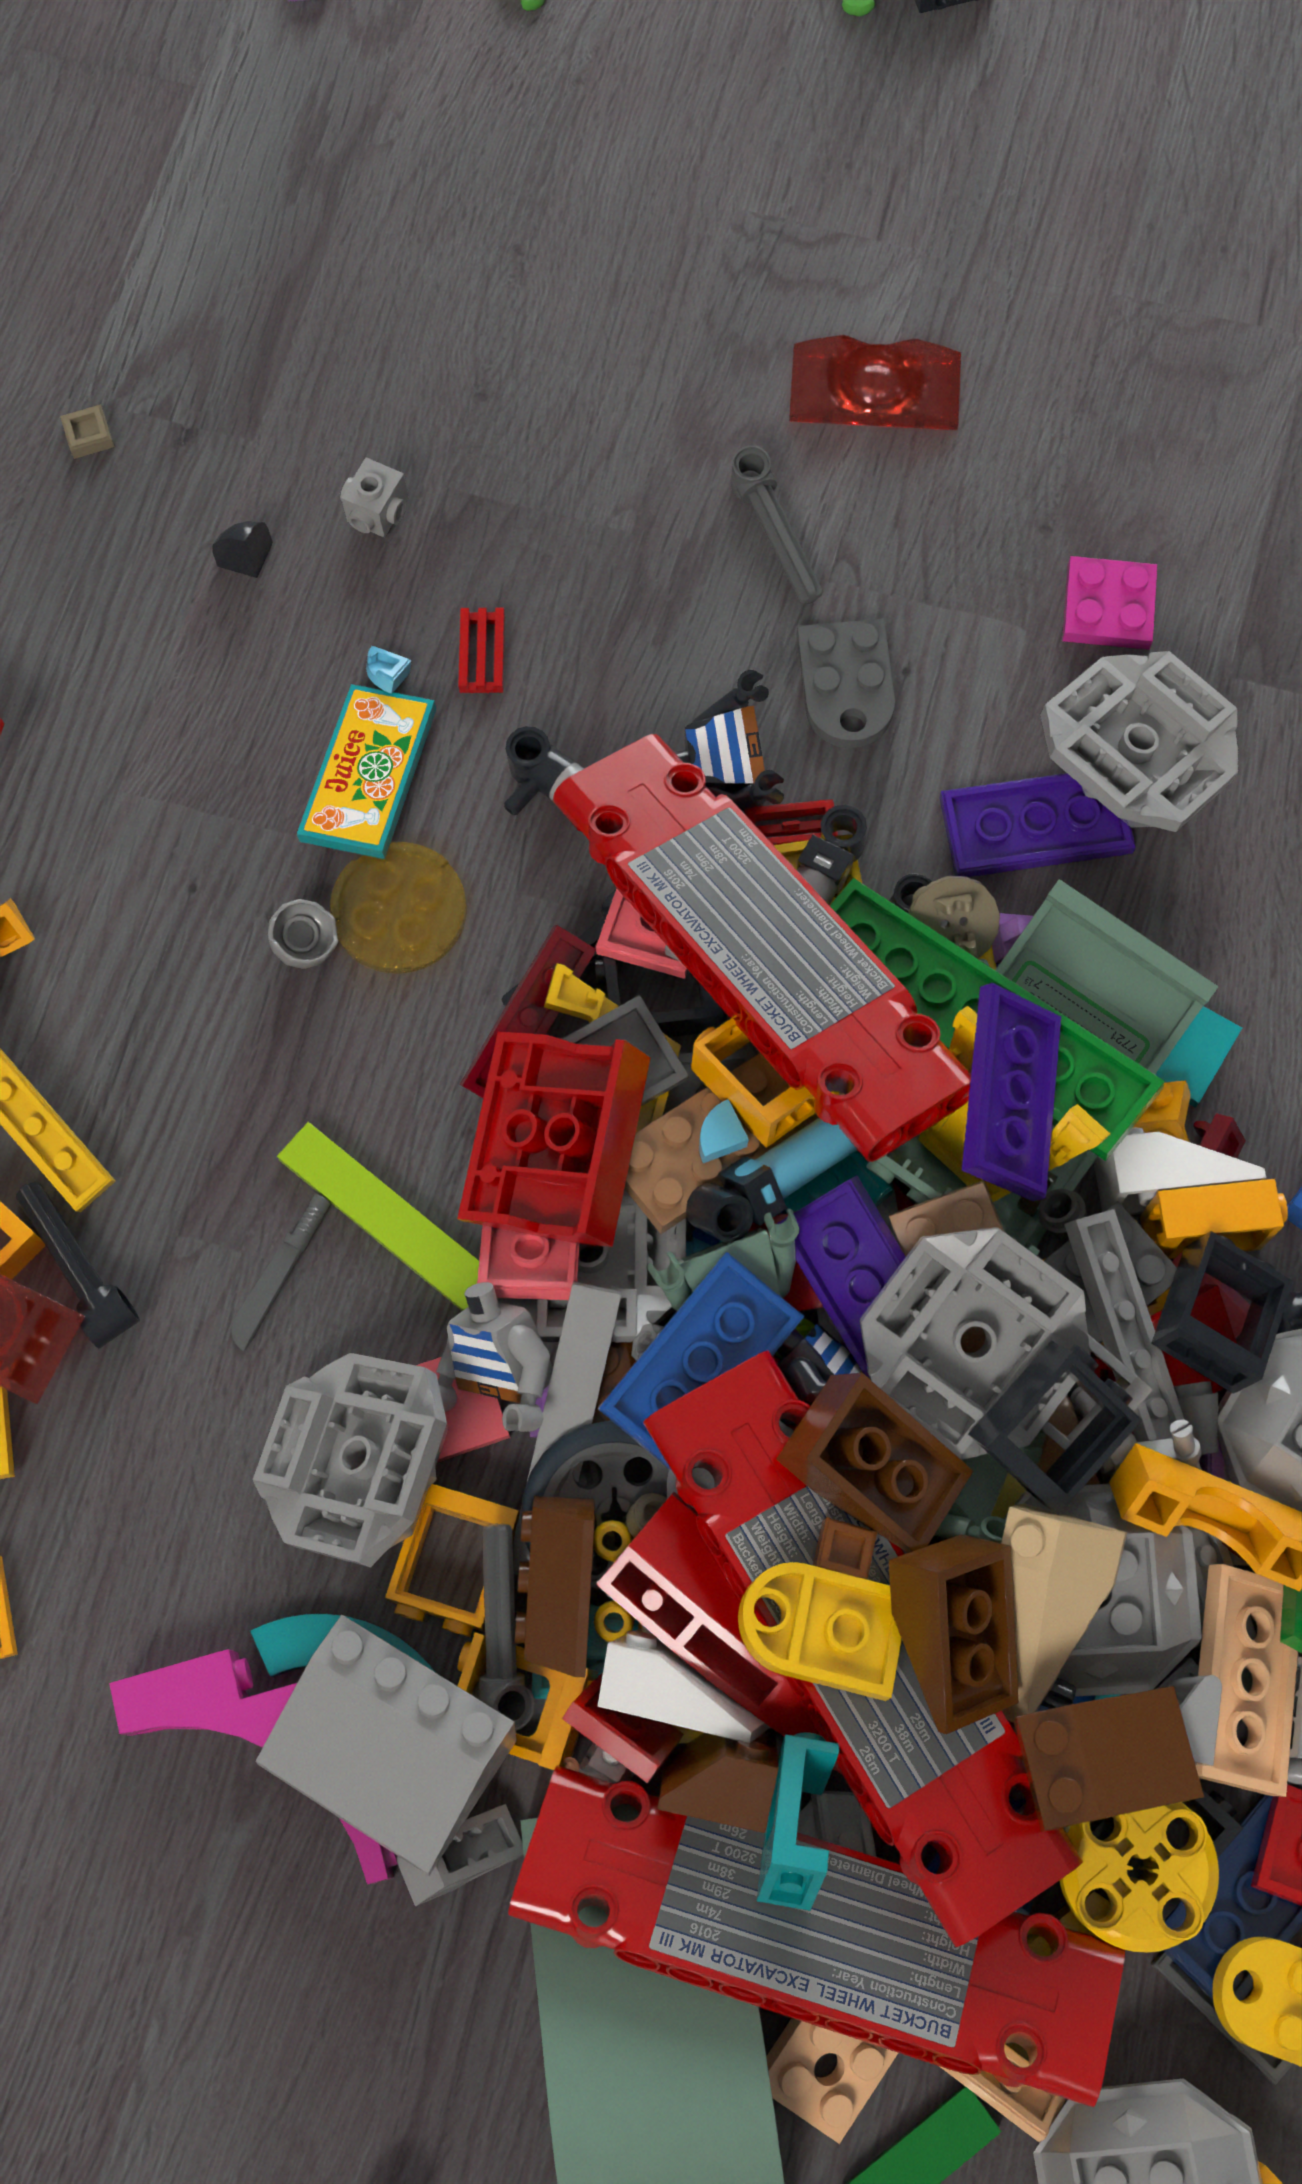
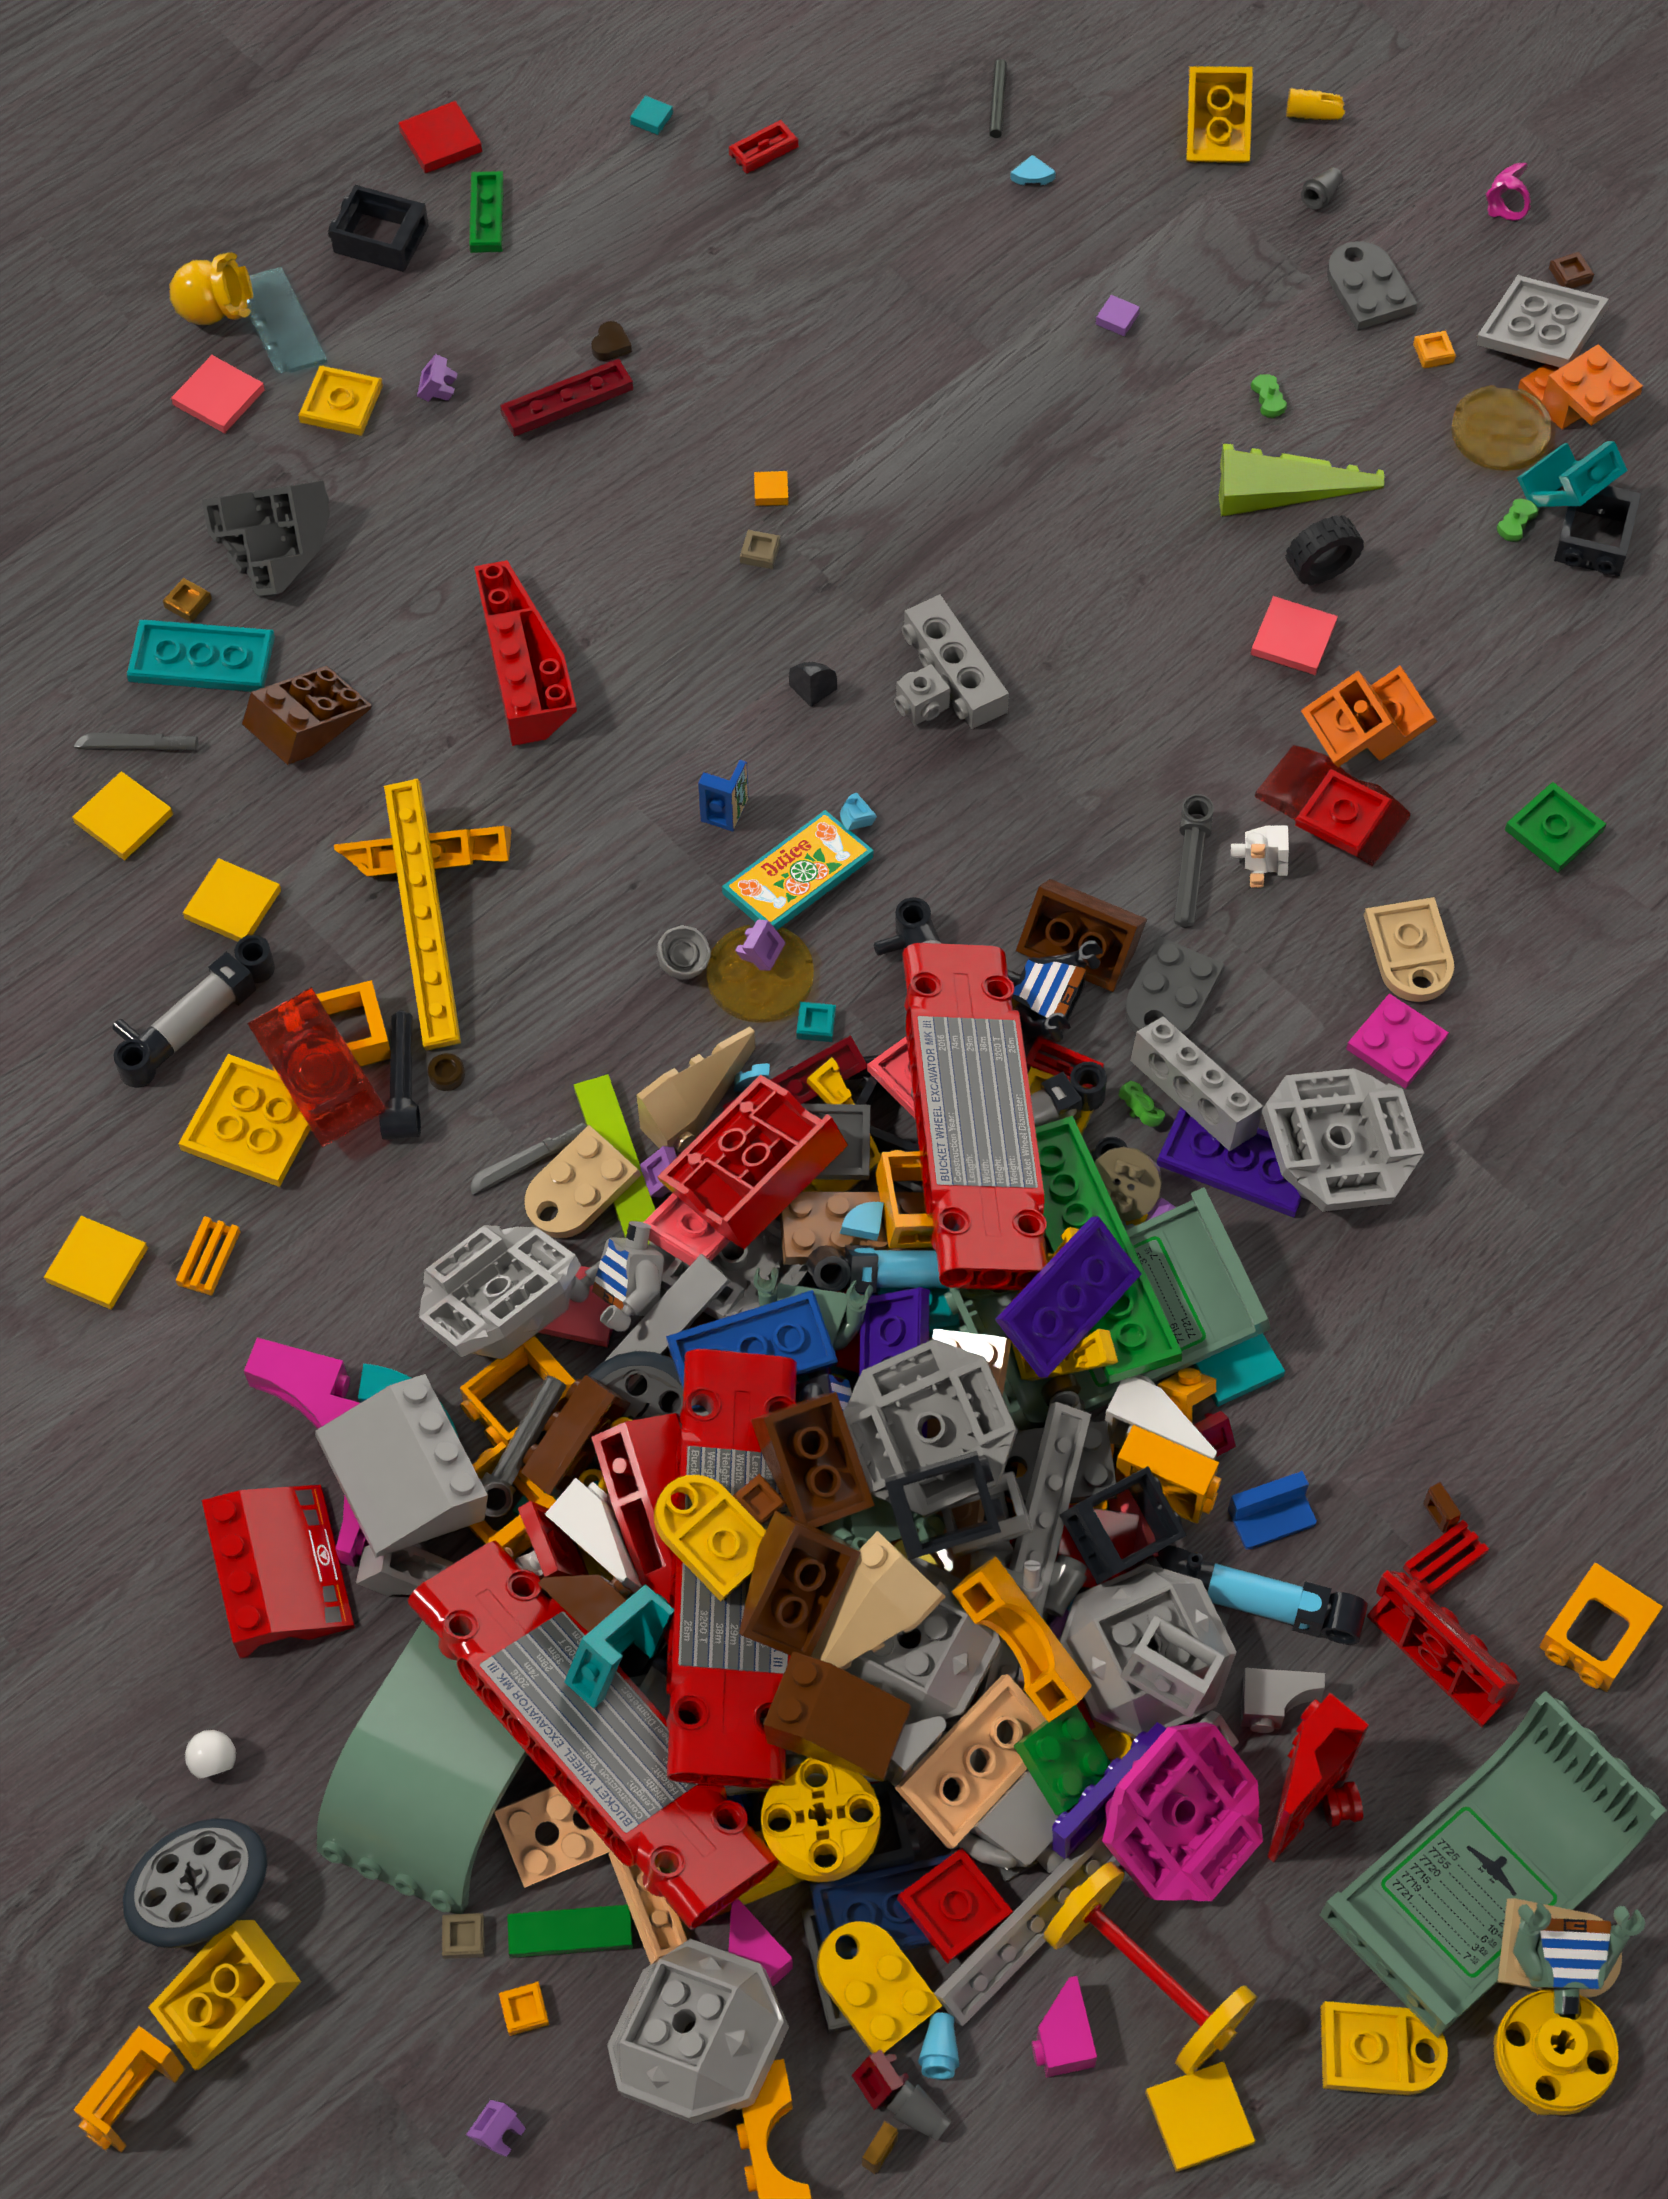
camera: 30 degrees right, 10 degrees down
(55, 357) = (771, 488): none -> light orange tile
(120, 1225) = (446, 1072): none -> dark brown tile
(233, 733) = (723, 799): none -> blue panel
(307, 1942) = (277, 1565): none -> red piece
(359, 1266) = (580, 1184): none -> tan plate
(372, 424) = (936, 620): none -> light grey brick
(386, 876) = (761, 945): none -> medium lavender tile
(414, 1111) = (681, 1102): none -> tan wedge
(440, 1200) = (654, 1166): none -> medium lavender tile
(479, 1028) = (743, 1080): none -> medium azure tile
(481, 618) = (943, 814): red tile -> none
(496, 928) = (816, 1022): none -> teal tile
(584, 74) = (1265, 482): none -> lime wedge
(696, 115) = (1324, 550): none -> black tyre
(702, 662) = (1067, 918): none -> reddish brown slope
(716, 226) = (1294, 635): none -> coral tile
(846, 472) = (1264, 851): none -> white piece
(859, 268) = (1369, 716): none -> orange bracket
(901, 386) = (1343, 812): none -> red tile
(901, 821) = (1141, 1104): none -> bright green piece
(950, 765) = (1196, 1083): none -> light grey brick
(1057, 493) = (1411, 944): none -> tan plate
(1114, 288) = (1555, 827): none -> green plate
(1147, 2052) = (752, 1941): none -> dark pink slope

